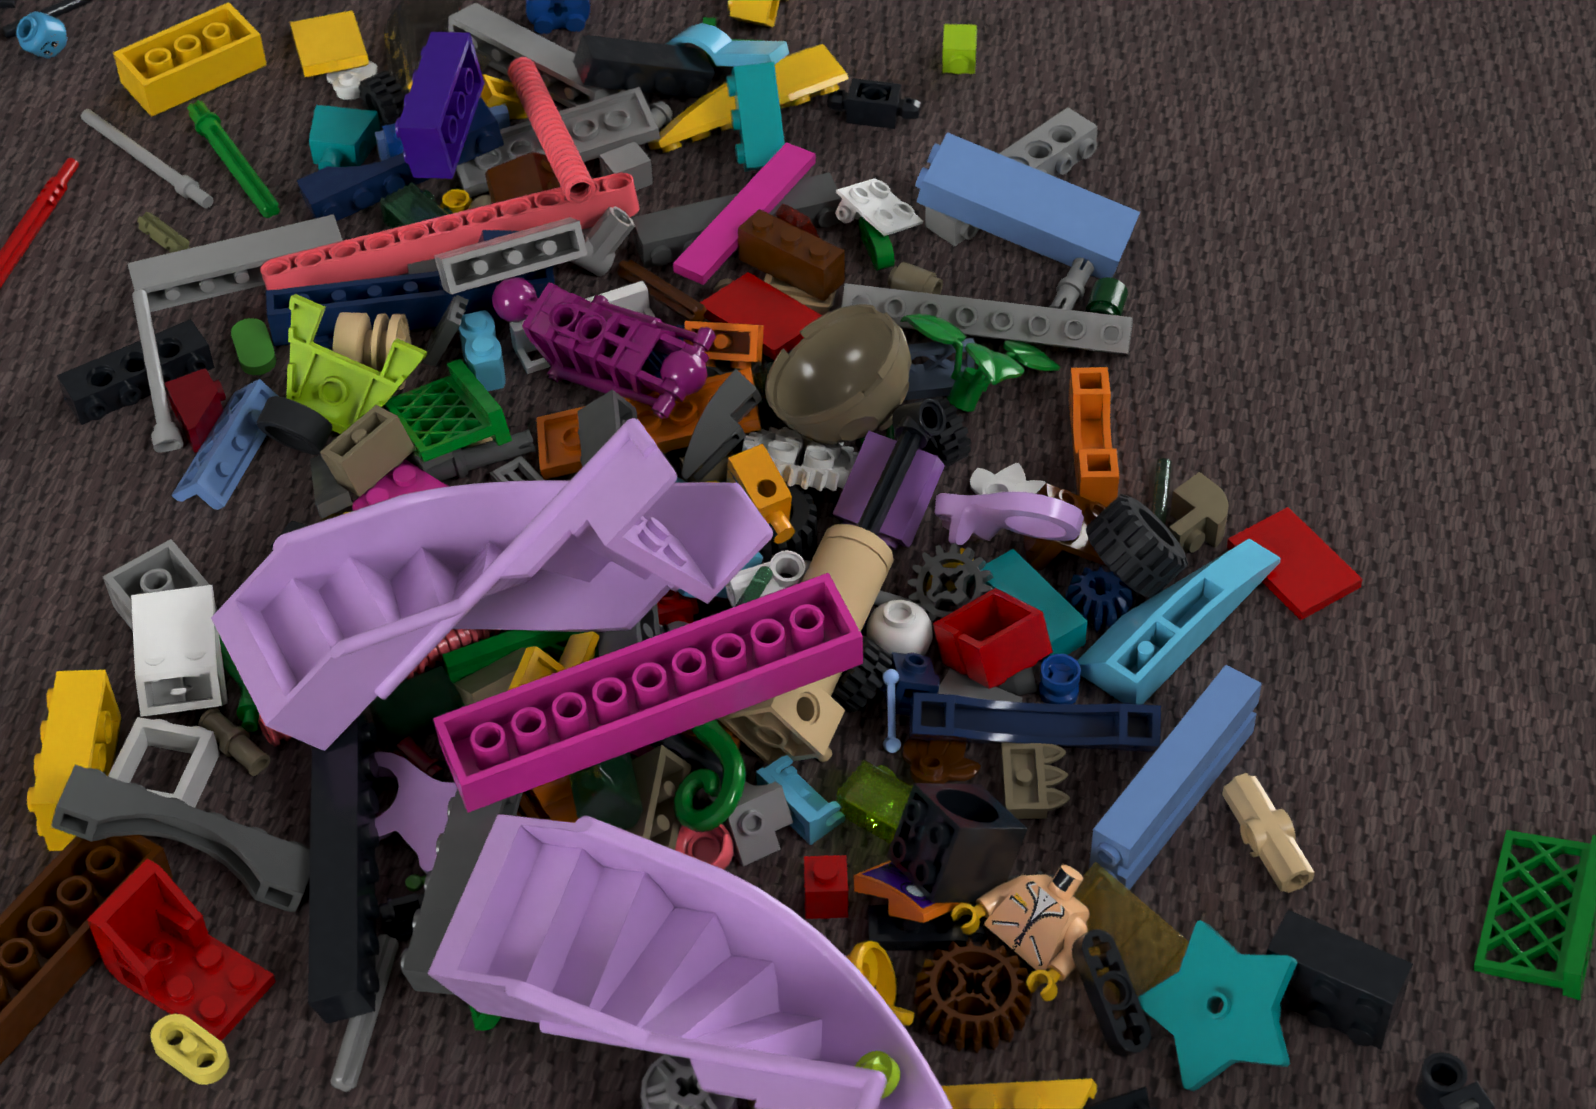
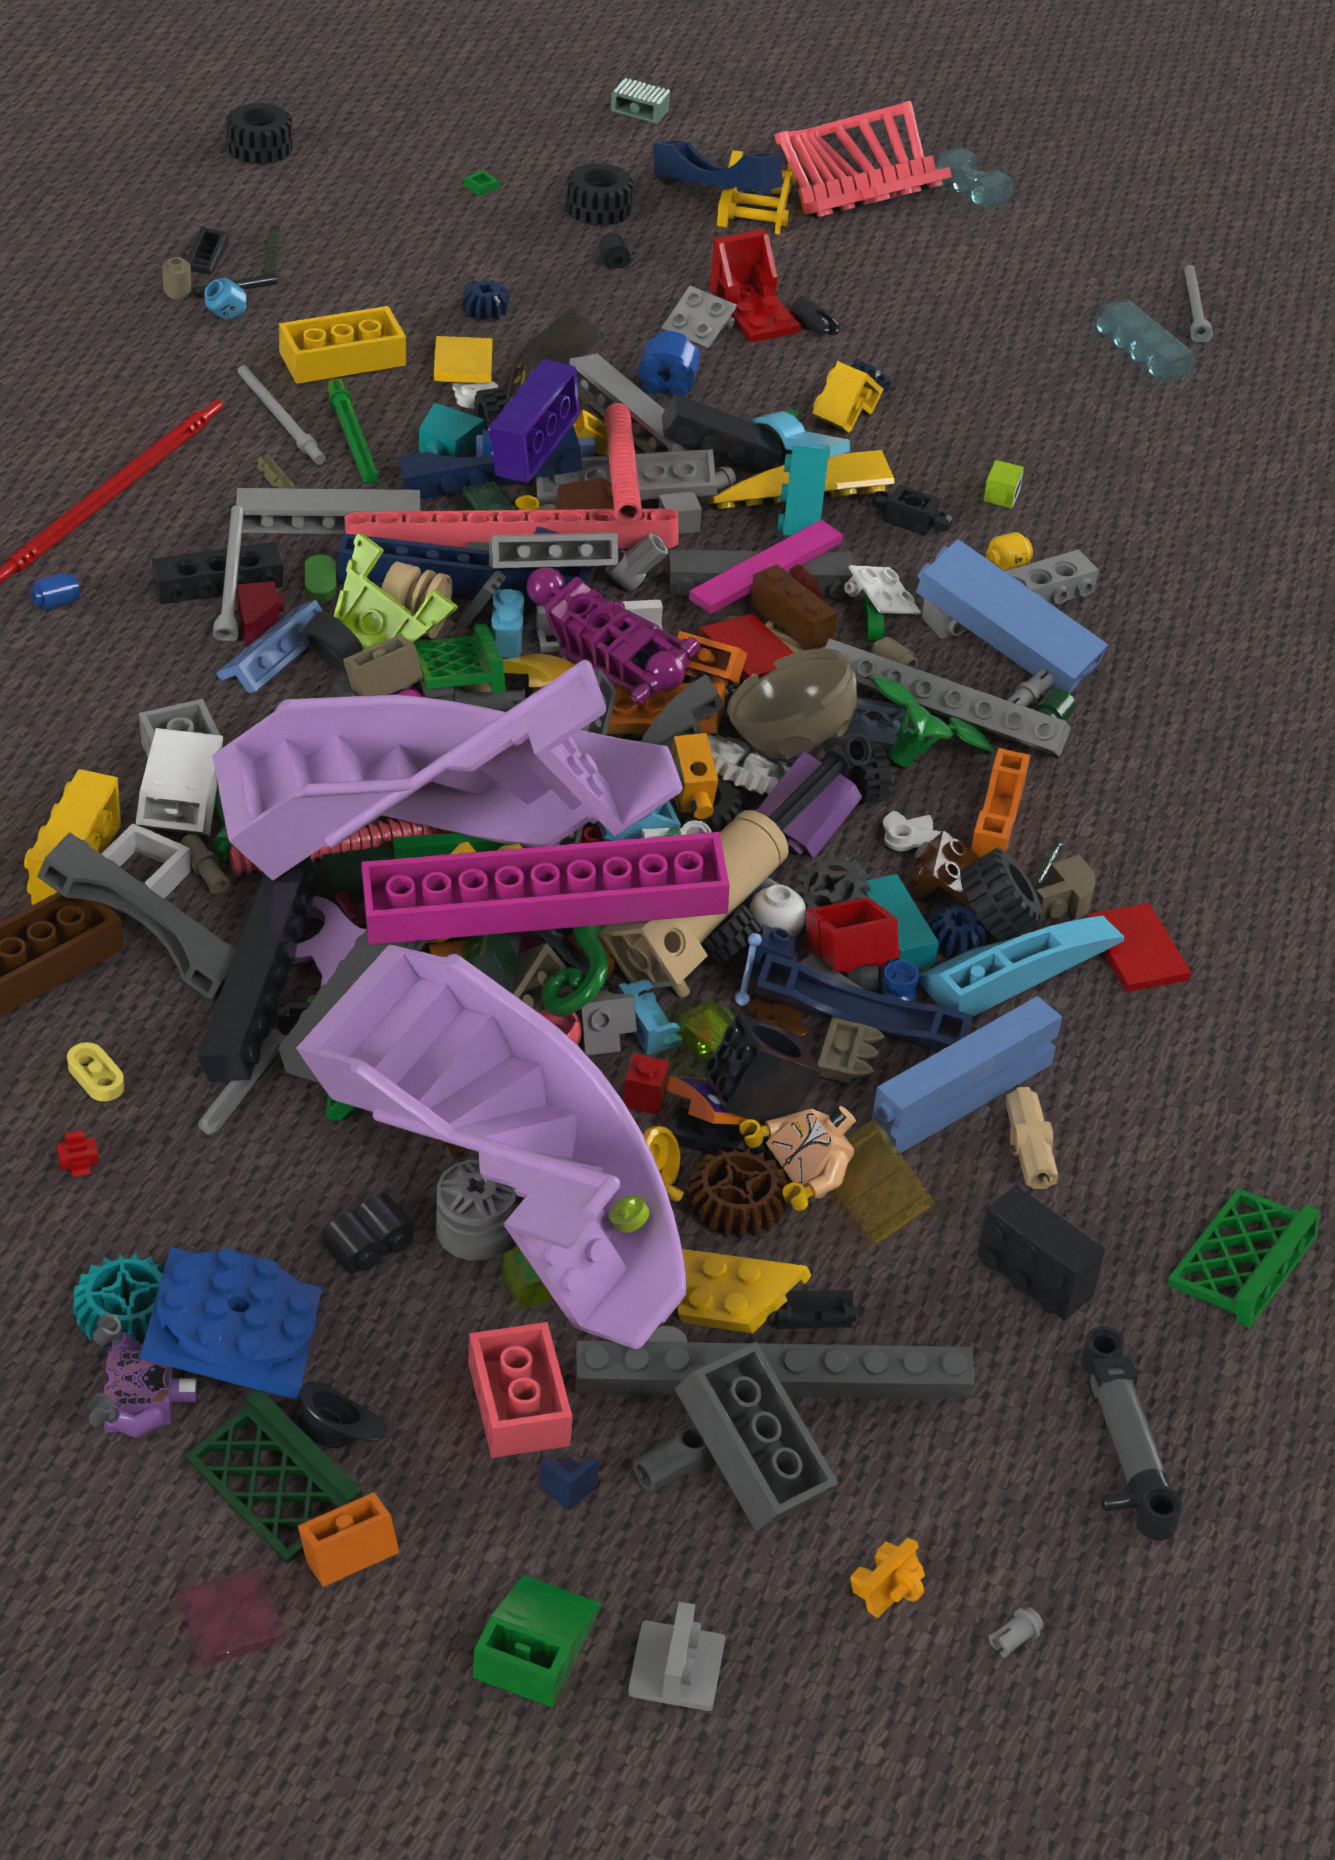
camera: 10 degrees right, 5 degrees down
(164, 953) = (98, 996): red bracket -> none
(545, 398) = (539, 667): none -> yellow slope
(663, 291) = (673, 610): reddish brown axle -> none
(993, 127) = (1009, 551): none -> yellow head
(1020, 512) = (882, 837): lavender animal -> none
(1118, 975) = (863, 1243): black beam -> none
(1250, 1015) = (937, 1247): teal plate -> none

